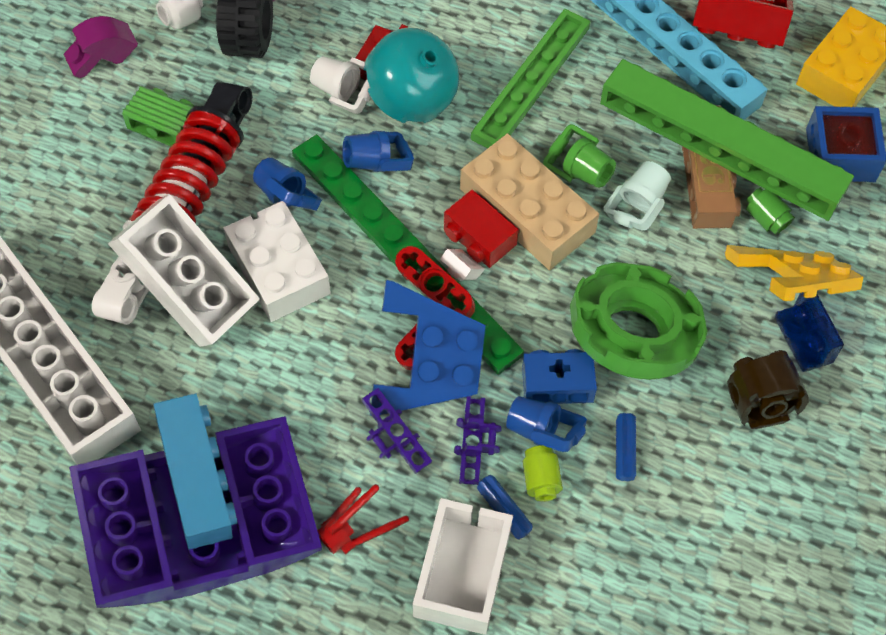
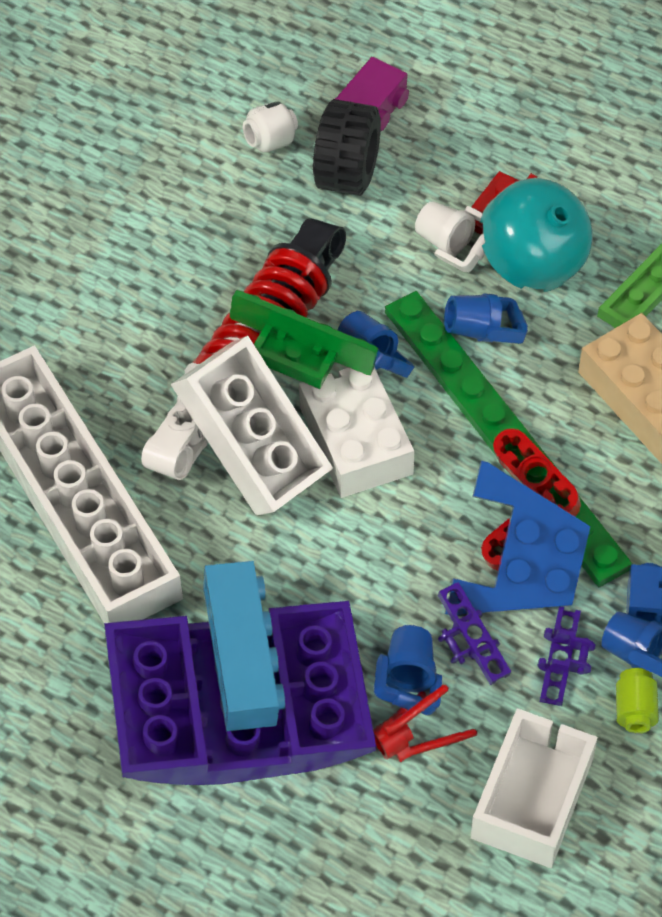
camera: 10 degrees right, 5 degrees down
(97, 40) = (171, 155): magenta brick -> none
(156, 115) = (232, 249): bright green brick -> none
(216, 194) = (298, 344): none -> green bracket
(342, 469) = (407, 669): none -> blue piece
(461, 265) = (570, 458): white plate -> none
(480, 229) = (596, 420): red brick -> none
(502, 502) = (580, 718): blue axle -> none

